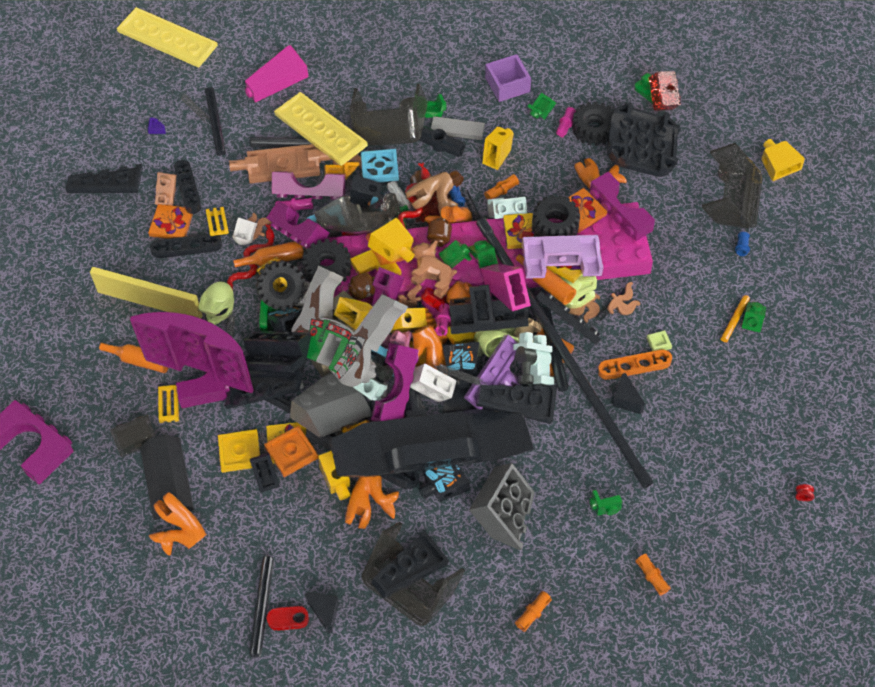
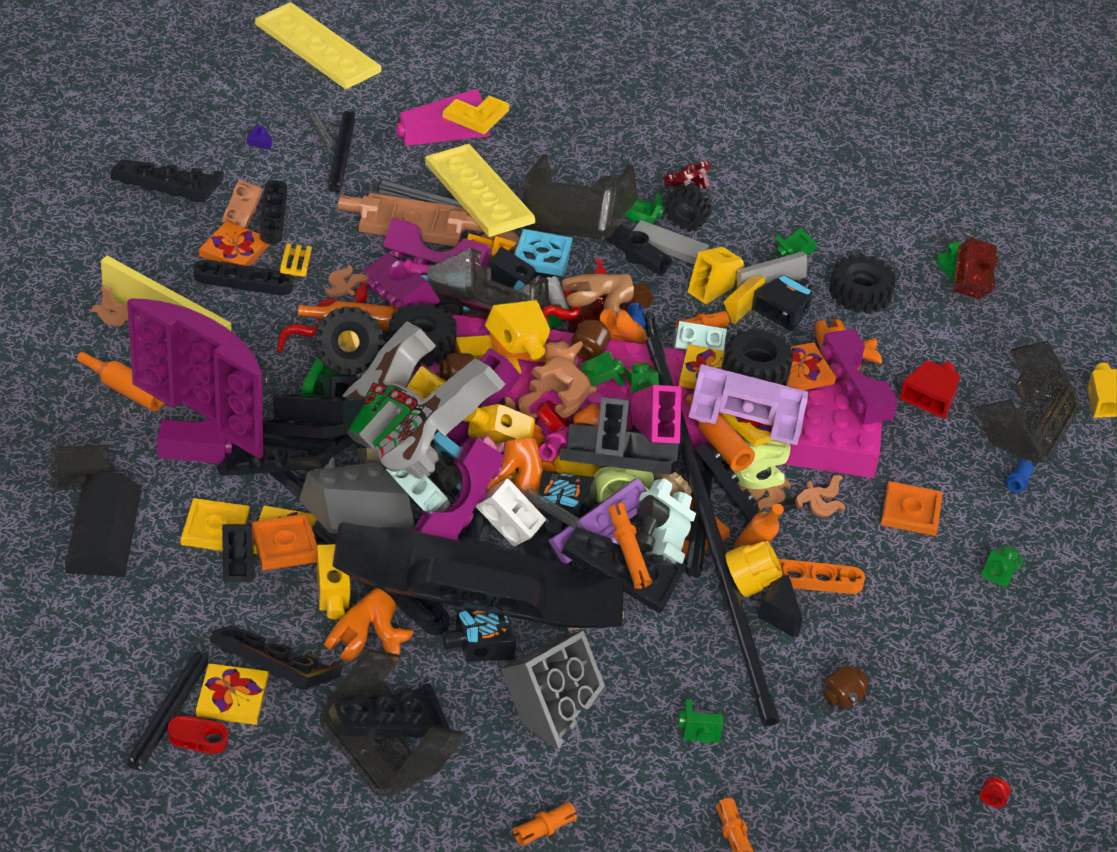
camera: 10 degrees right, 15 degrees down
(111, 304) = (108, 317): none -> nougat piece
(169, 417) = (138, 461): yellow tile -> none
(180, 516) = (110, 595): orange piece -> none
(216, 299) = (263, 339): yellowish green helmet -> none
(244, 231) = (327, 280): white plate -> none
(297, 70) = (476, 118): none -> yellow tile
(297, 577) = (232, 694): none -> yellow tile
(317, 544) = (276, 658): none -> black wing
(324, 607) = (254, 734): black slope -> none
(452, 72) = (691, 172): none -> dark red plate
(457, 94) = (693, 198): none -> black tyre
(508, 78) = (761, 200): medium lavender piece -> none
(519, 387) = (625, 534): none -> orange pin
(522, 158) = (742, 298): none -> yellow slope
(533, 134) = (792, 266): none -> light grey tile
(548, 153) = (783, 301): none -> black torso
(566, 122) = (822, 272): dark pink axle -> none
(597, 350) = (761, 528): none -> orange piece
(601, 375) = (753, 567): none -> yellow piece
(642, 141) = (921, 317): black tile -> none
(659, 341) = (855, 556): yellowish green tile -> none
(666, 192) = (931, 387): none -> red torso
(682, 290) = (912, 508): none -> orange tile
(687, 444) = (845, 687): none -> reddish brown head
(735, 318) = (973, 562): light orange bar -> none

